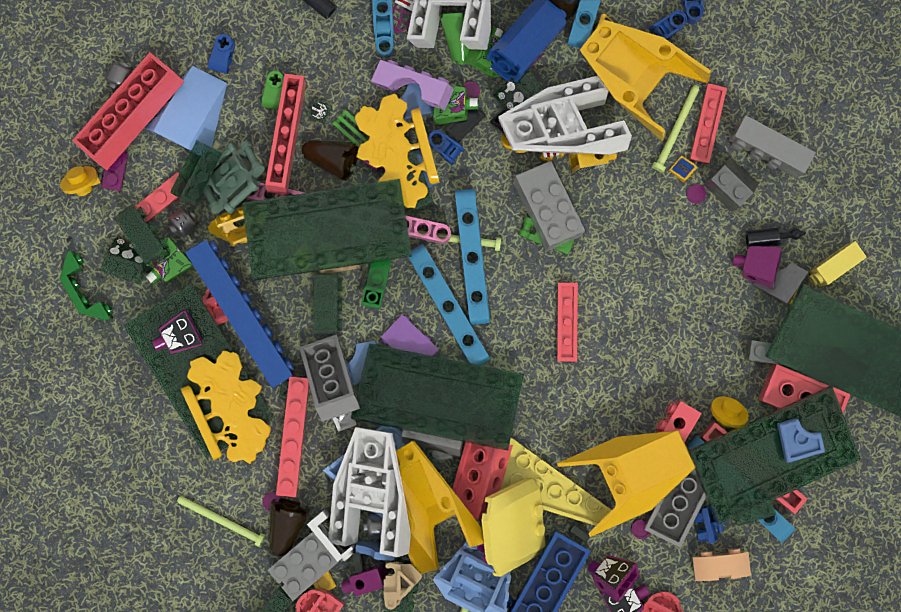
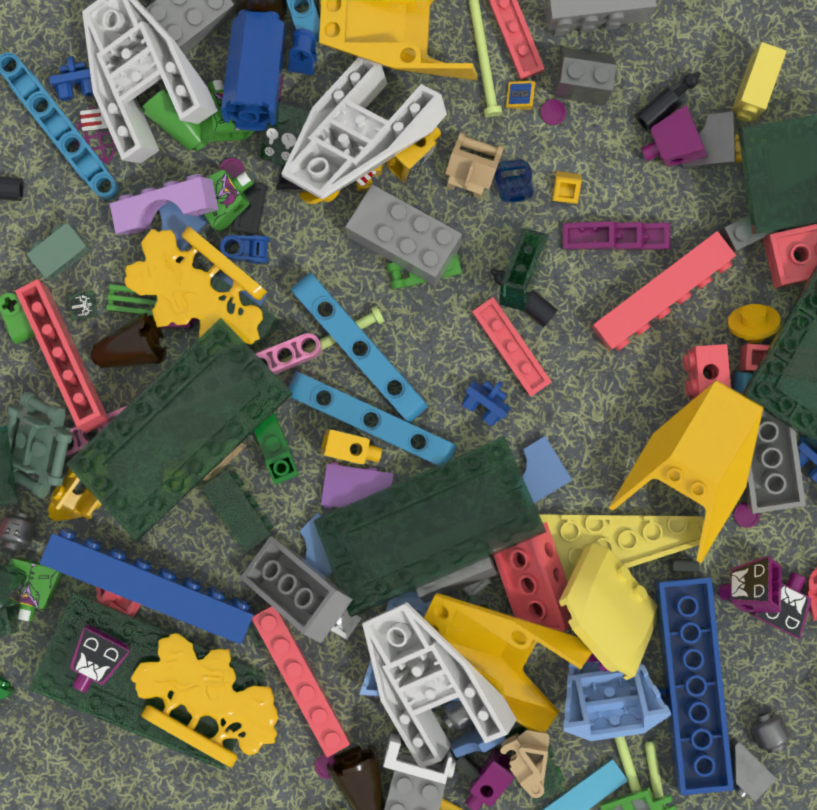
camera: 35 degrees left, 0 degrees up
(327, 67) = (58, 251): none -> sand green brick
(416, 308) = (338, 444): none -> yellow torso
(531, 343) = (478, 394): none -> blue hips
(533, 412) = (543, 470): none -> medium blue tile
(565, 49) = (303, 52): none -> blue piece
(597, 298) = (537, 306): none -> black wheel
(607, 279) = (523, 269): none -> clear green brick
(618, 195) = (470, 170): none -> tan piece
(639, 224) = (517, 187): none -> clear blue piece
(671, 246) = (567, 187): none -> yellow slope
(681, 298) = (616, 236): none -> magenta slope
(686, 353) = (664, 290): none -> coral brick

